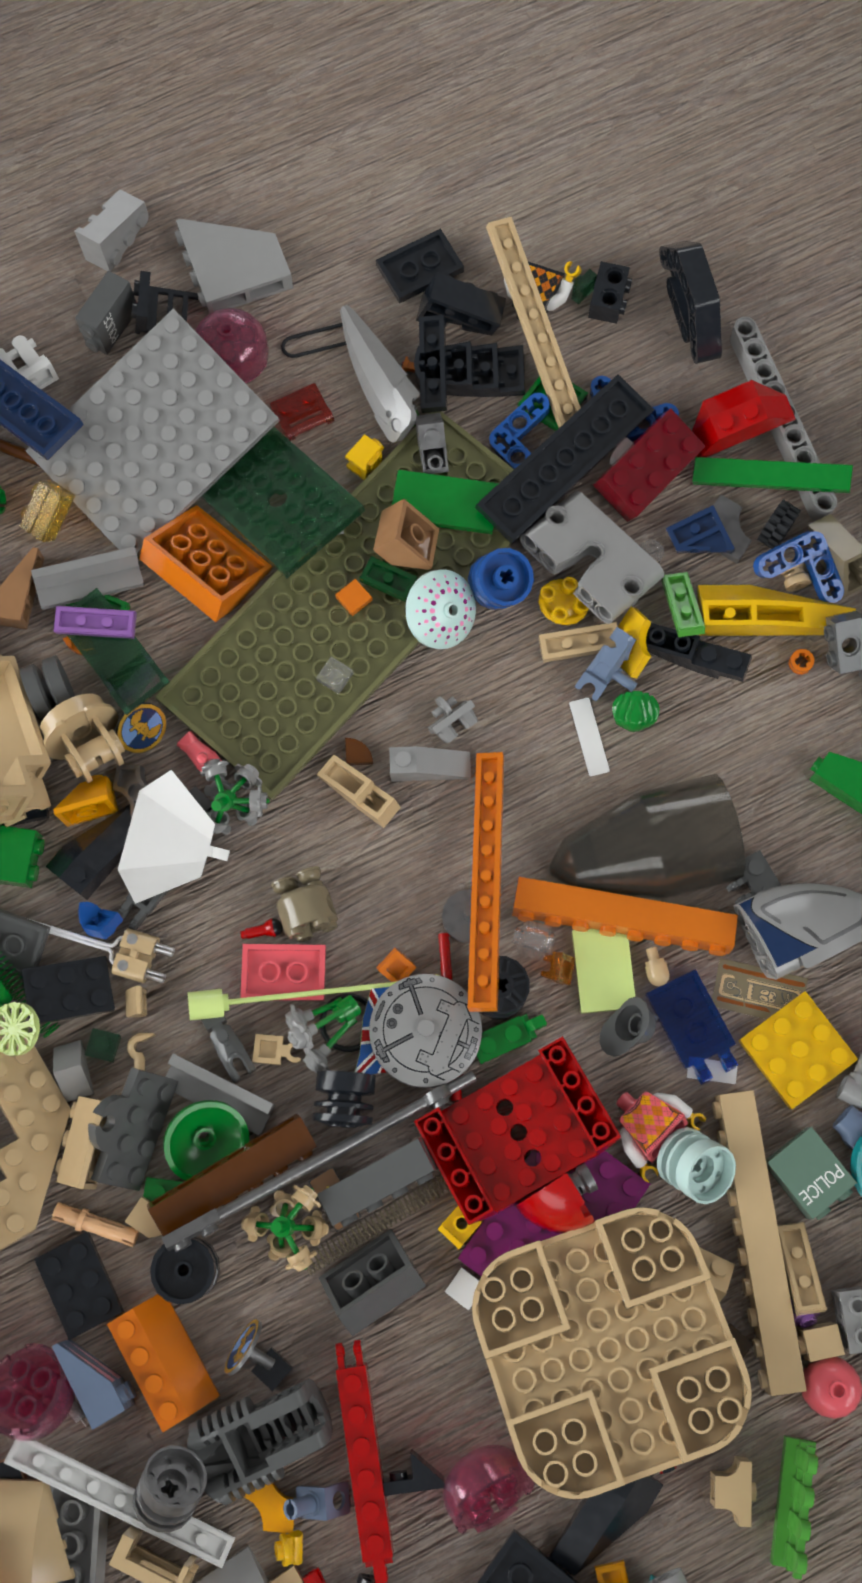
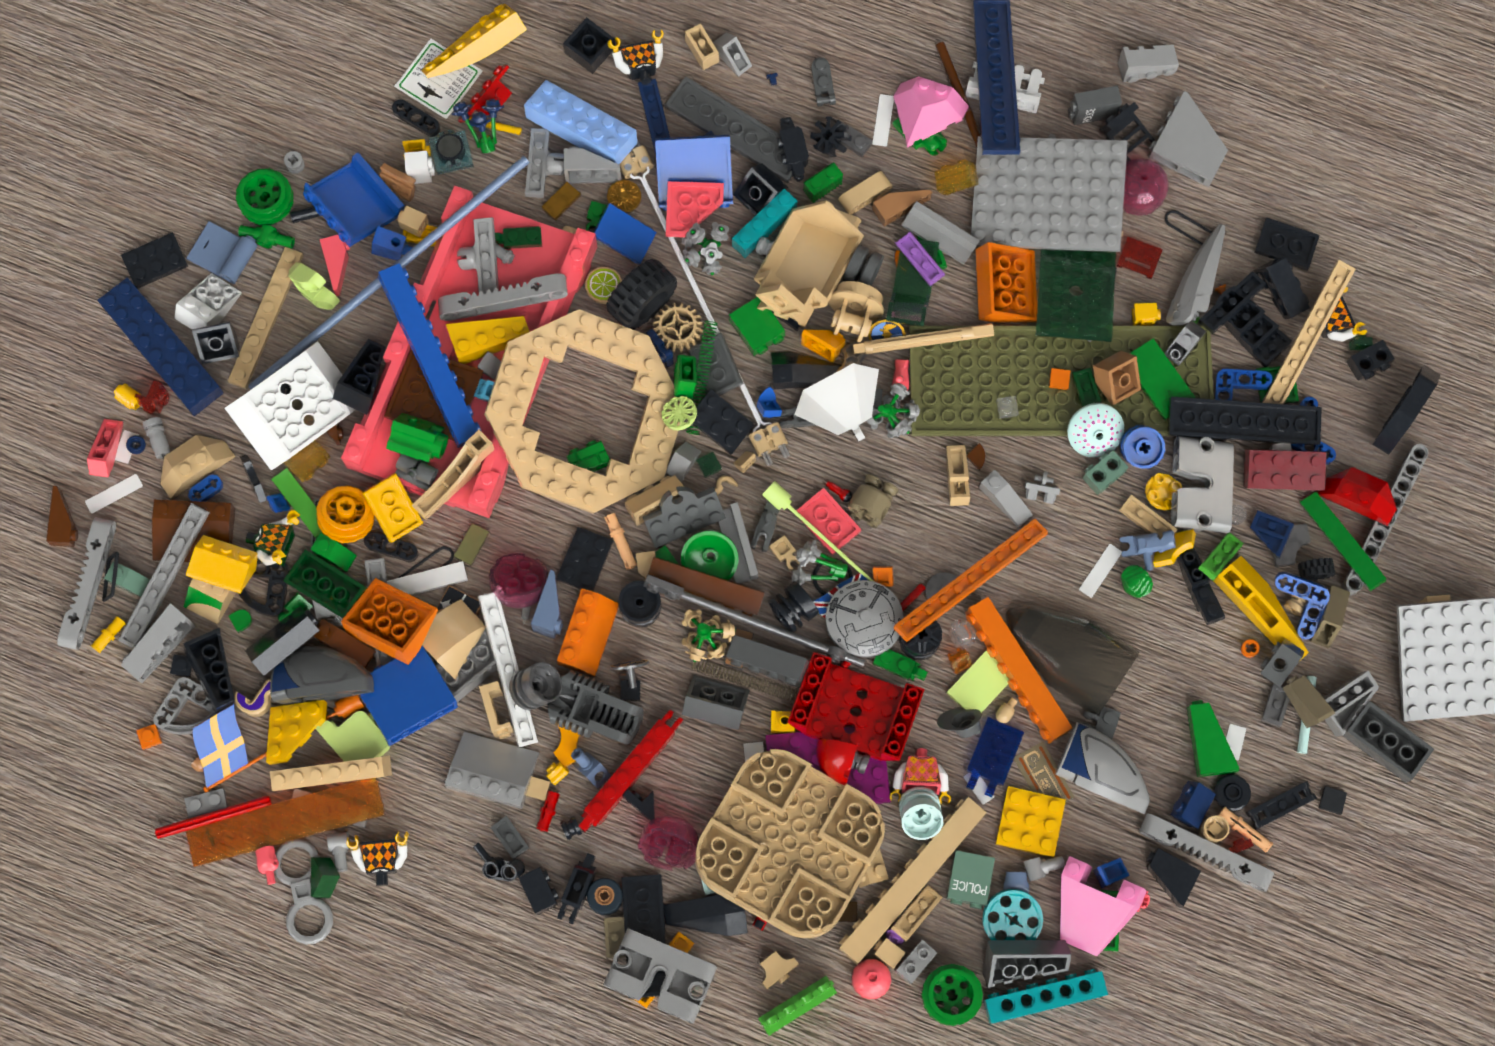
camera: 45 degrees right, 0 degrees up
(183, 695) = (924, 339): none -> tan piece
(496, 640) = (1108, 475): none -> sand green brick

